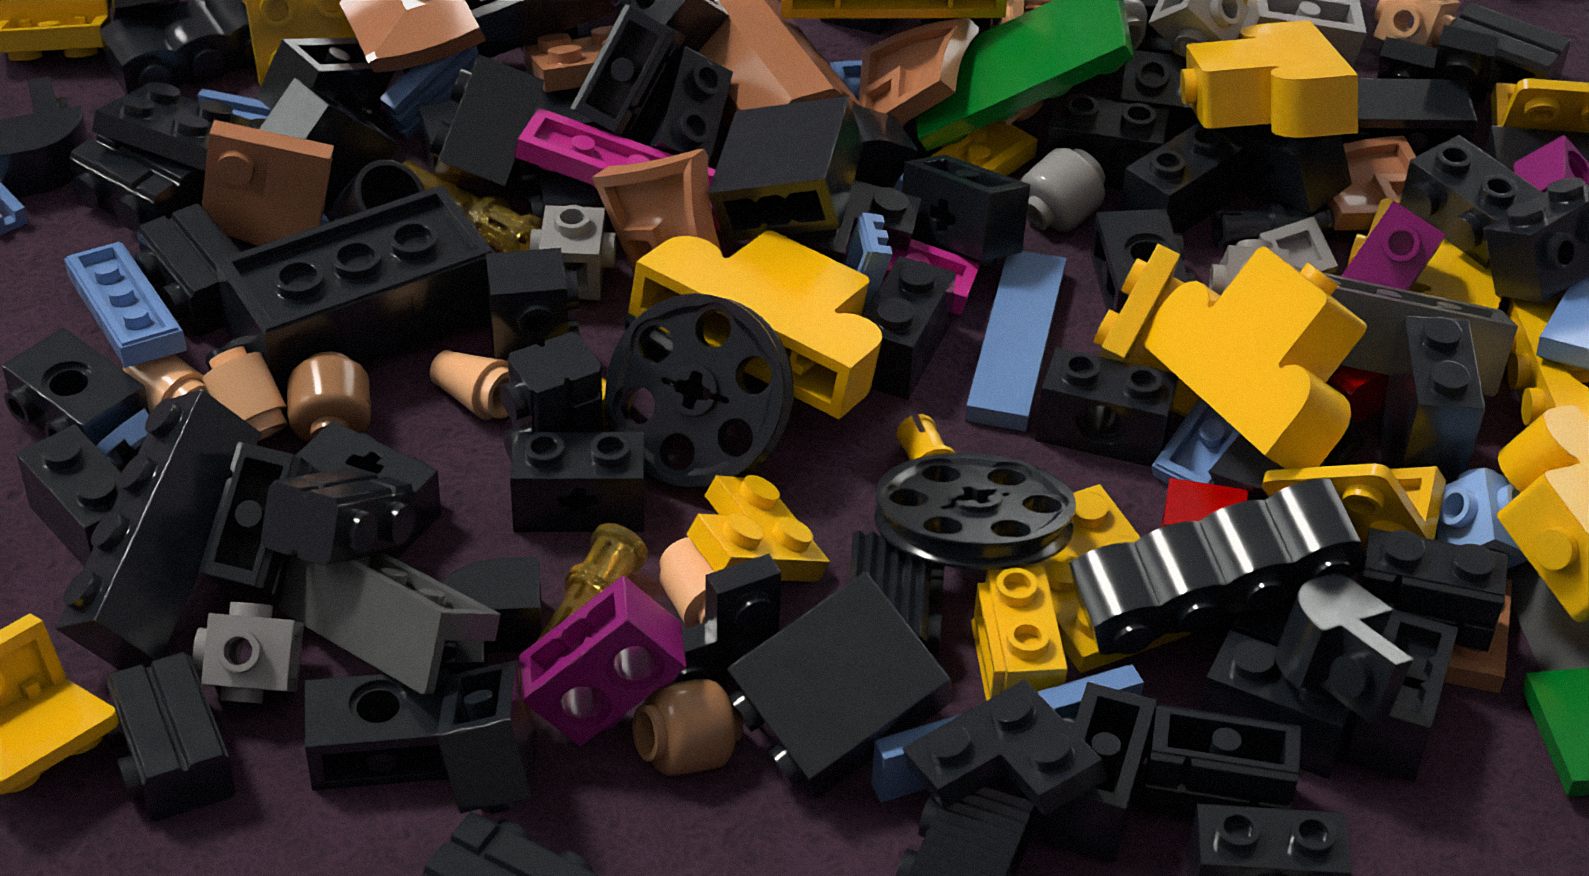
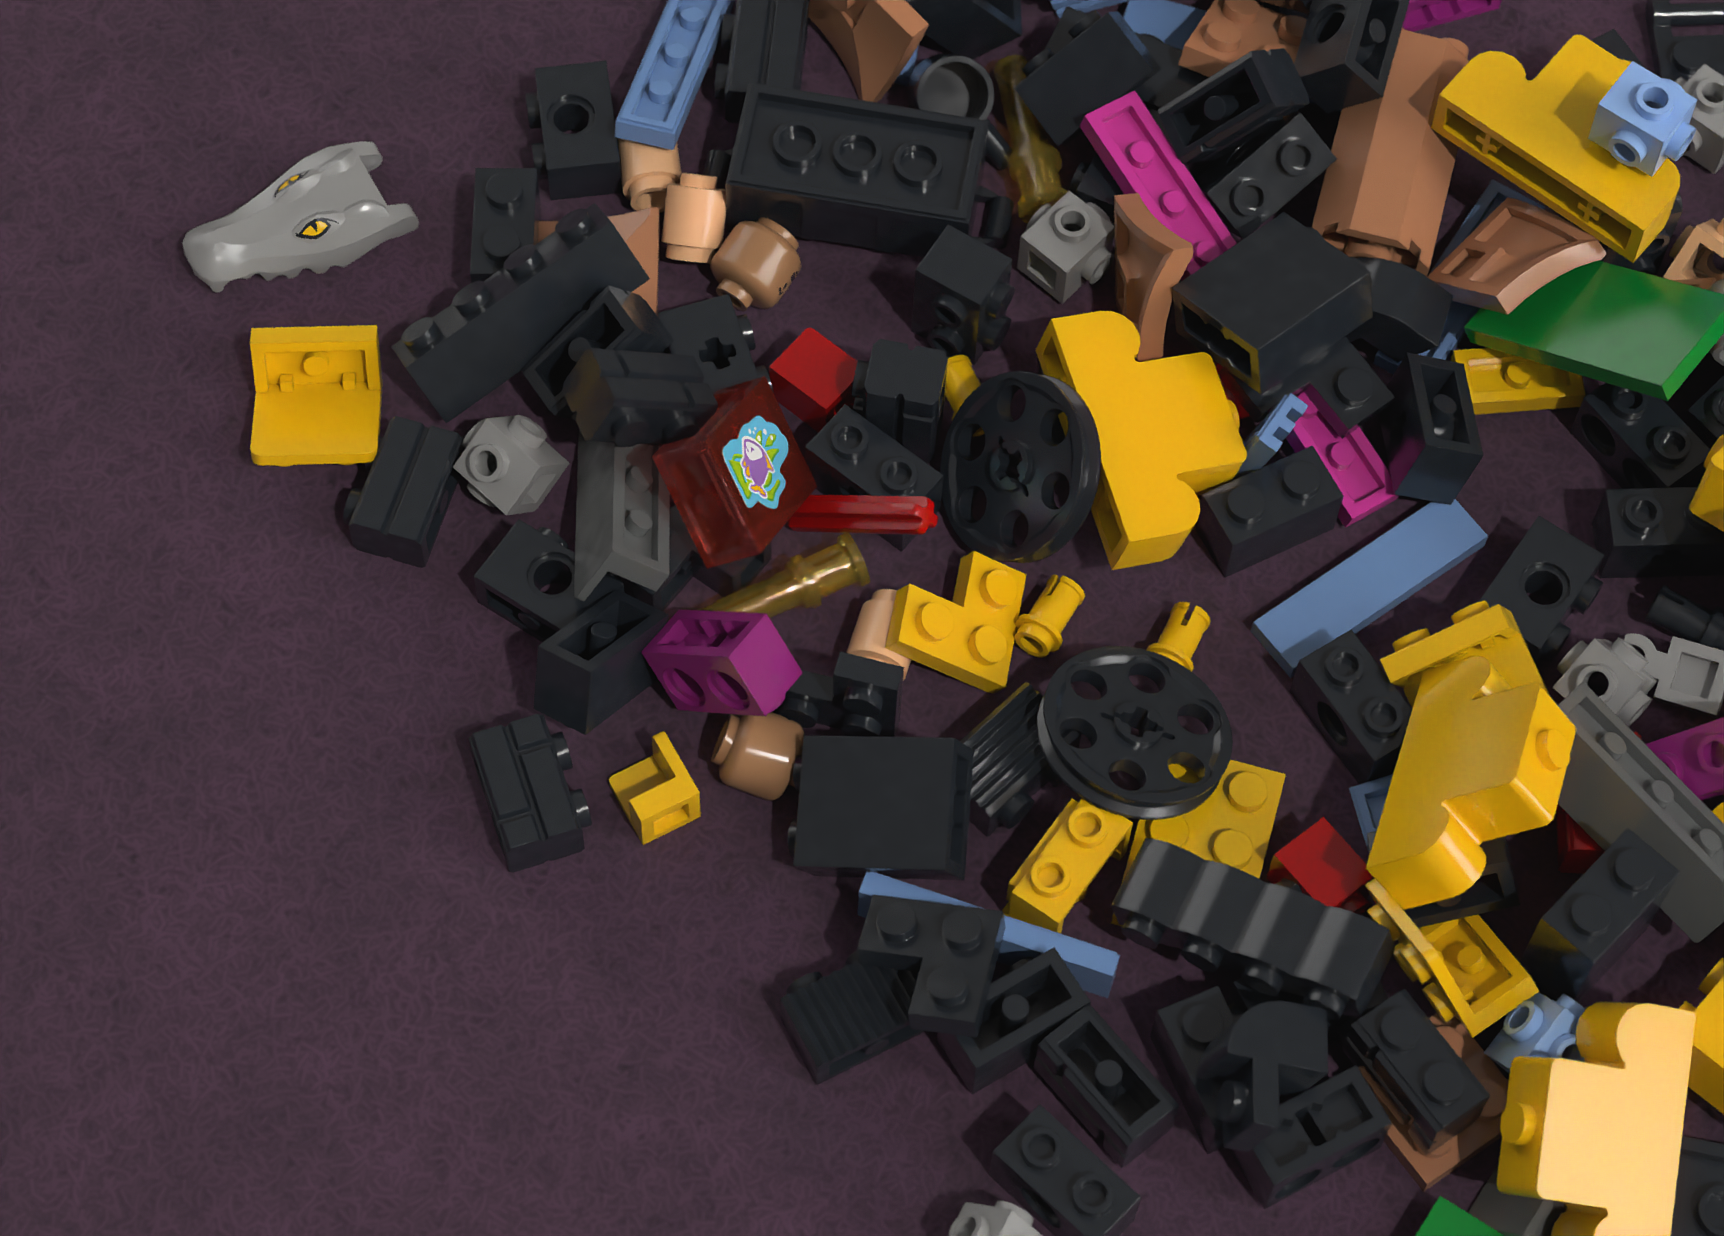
camera: 40 degrees right, 20 degrees up
(125, 439) = (555, 207): medium blue tile -> none
(464, 446) = (813, 379): none -> red panel
(472, 381) = (885, 315): light nougat cone -> none
(477, 523) = (737, 475): none -> clear red panel
(604, 497) = (865, 514): none -> red axle
(625, 813) = (657, 792): none -> yellow panel
(813, 498) = (1048, 617): none -> yellow pin
(1064, 189) = (1552, 464): light grey head -> none

